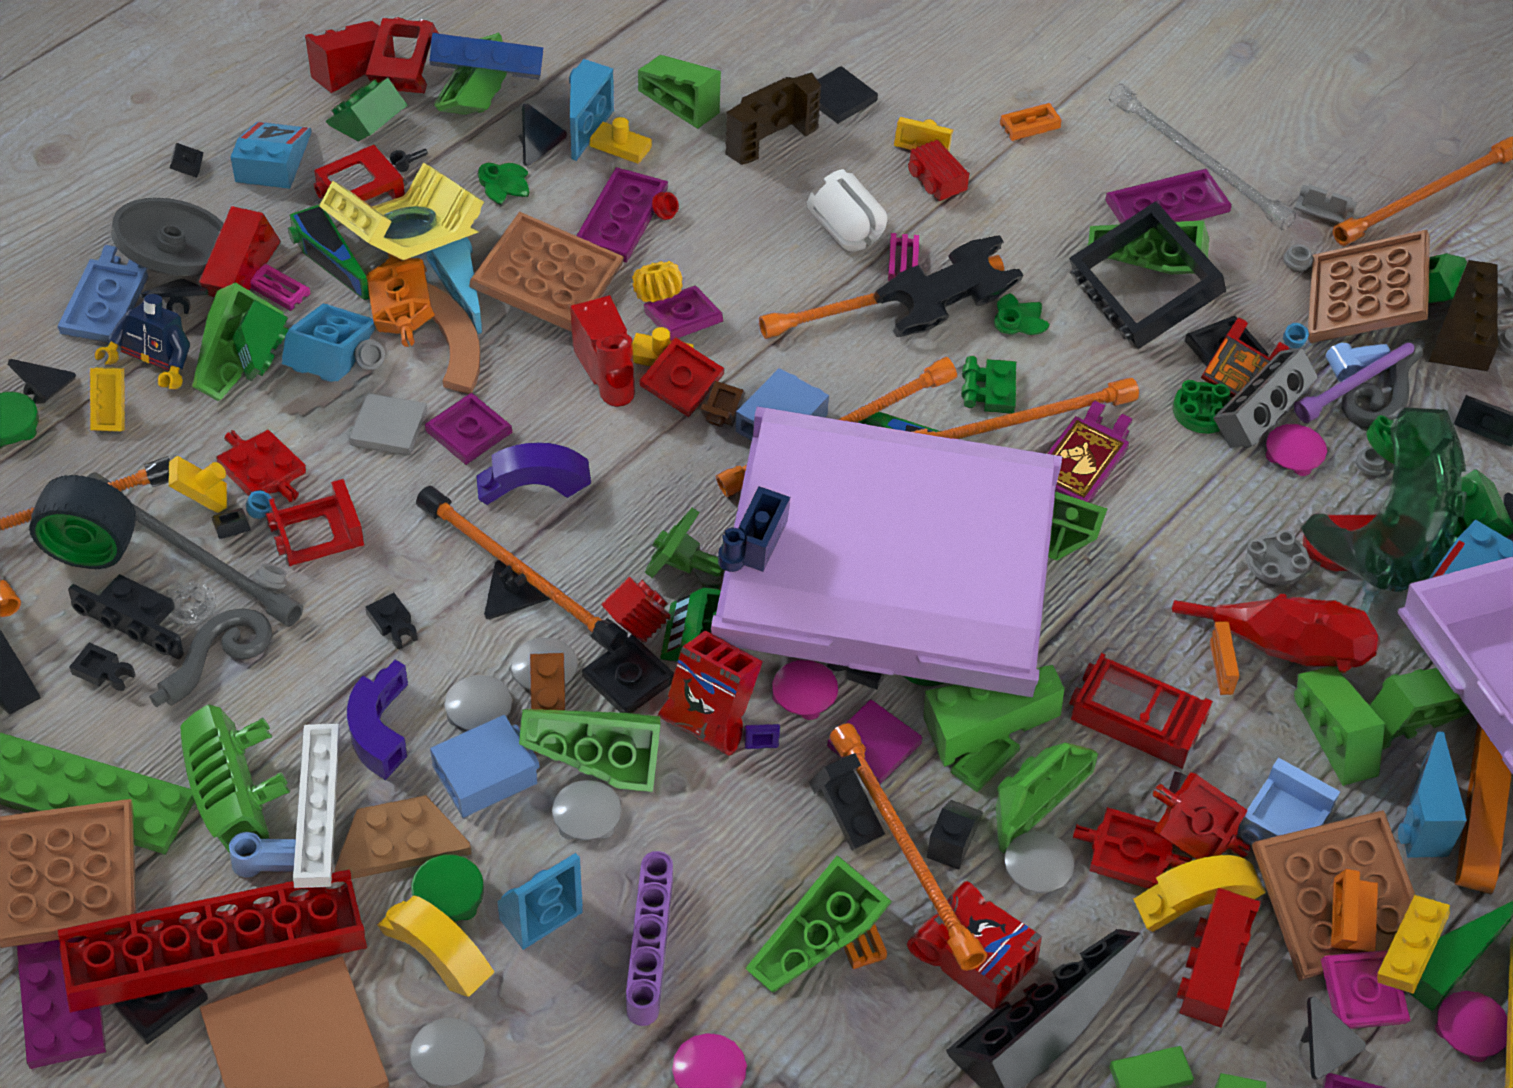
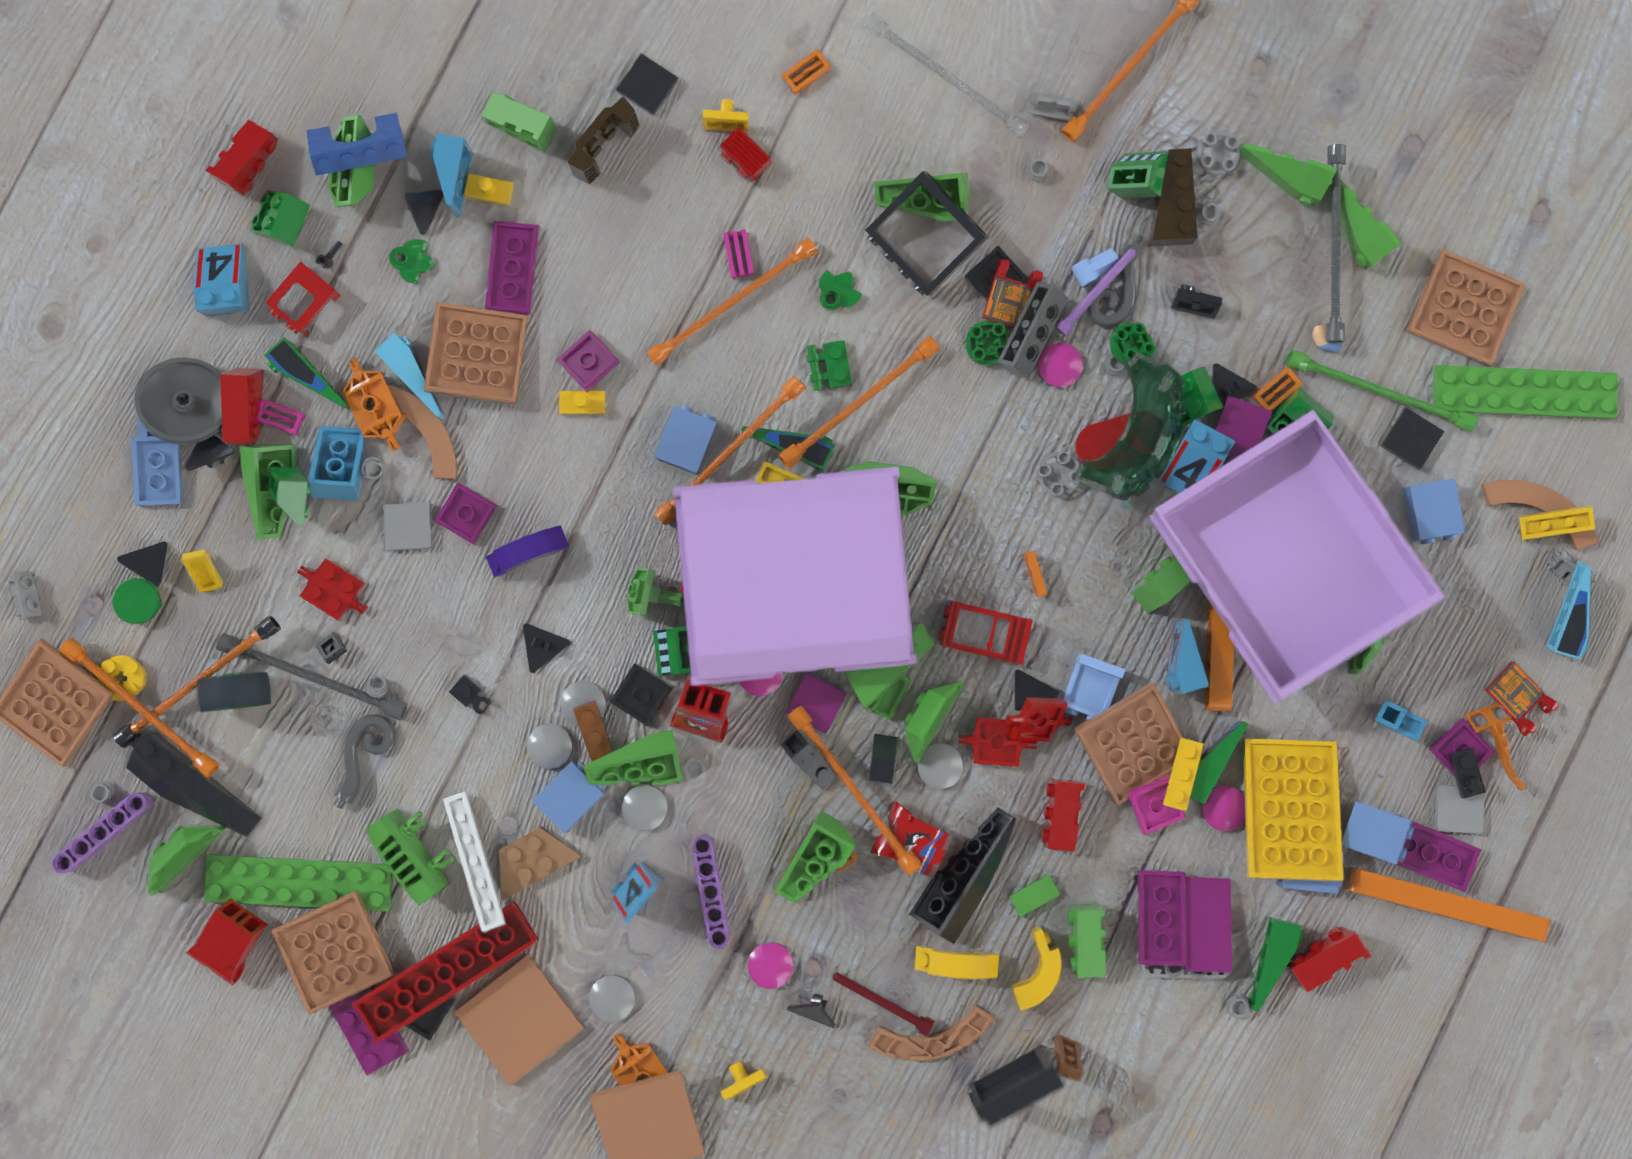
camera: 15 degrees left, 35 degrees up
(98, 665) = (290, 789): black plate -> none
(131, 610) = (294, 739): black bracket -> none
(153, 337) = (211, 503): dark blue torso -> none
(186, 160) = (160, 309): black tile -> none
(200, 485) = (297, 629): yellow tile -> none
(258, 504) = (345, 622): dark azure hinge -> none
(267, 854) = (456, 899): light blue piece -> none
(340, 516) = (406, 621): red window -> none
(372, 741) = (480, 785): dark purple arch -> none
(403, 73) = (287, 173): red window -> none
(423, 219) = (353, 338): light yellow panel -> none
(440, 942) = (580, 937): yellow arch -> none
(450, 885) = (575, 890): green tile -> none
(604, 349) = (543, 424): red piece -> none
(604, 632) = (467, 592): orange hose -> none
(637, 608) = (633, 655): red brick -> none
(657, 281) = (561, 340): yellow gear -> none
(665, 205) = (543, 253): red plate -> none
(681, 377) = (605, 428): red plate -> none
(722, 404) = (641, 445): reddish brown bracket -> none
(757, 533) = (706, 625): dark blue hinge -> none
(761, 736) = (740, 717): dark purple slope -> none
(848, 211) = (687, 227): white cylinder -> none
(930, 294) = (792, 273): black piece -> none
(1089, 453) = (909, 418): tile -> none
(1183, 197) = (929, 133): magenta tile -> none
(1195, 886) = (1046, 767): yellow arch -> none
(1293, 333) = (1047, 260): dark azure hinge -> none
(1297, 629) = (1080, 548): red piece -> none
(1329, 1039) = (1138, 852): black piece -> none
(1342, 723) = (1118, 607): bright green wedge -> none
(1354, 912) = (1144, 760): orange panel -> none
(1369, 286) = (1096, 199): nougat tile -> none

